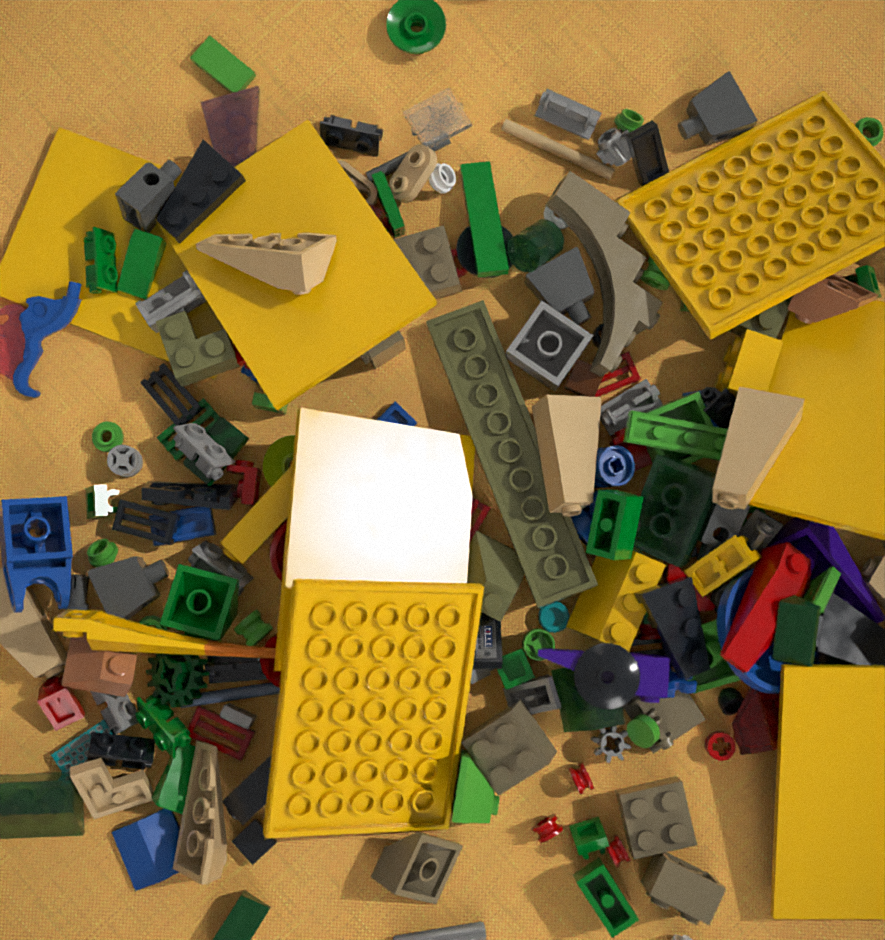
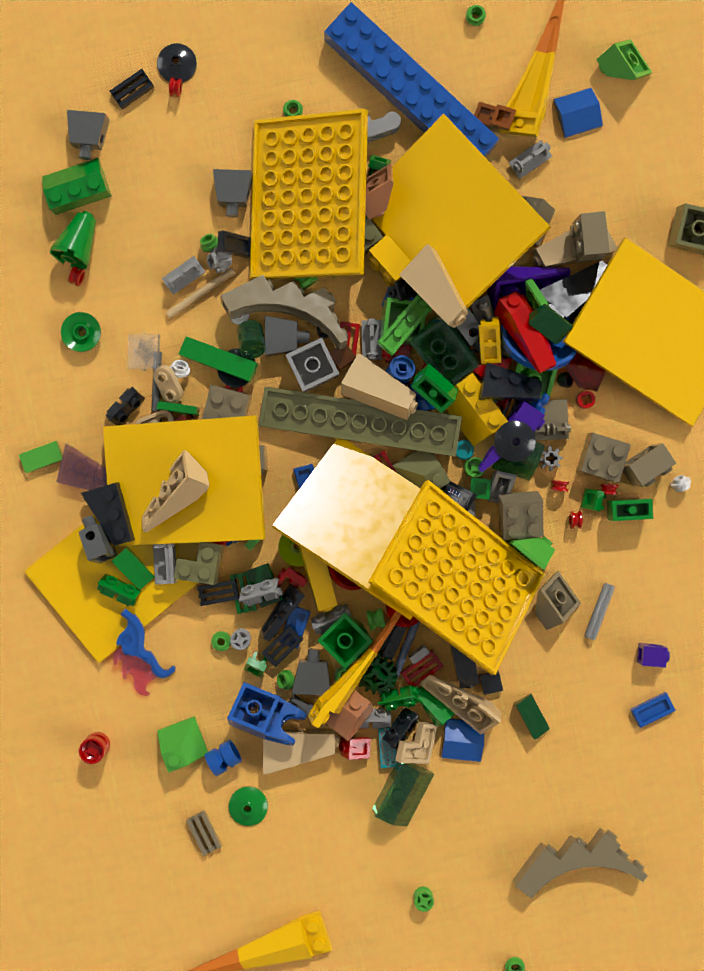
camera: 65 degrees left, 5 degrees up
(643, 731) = (554, 437): bright green tile -> none

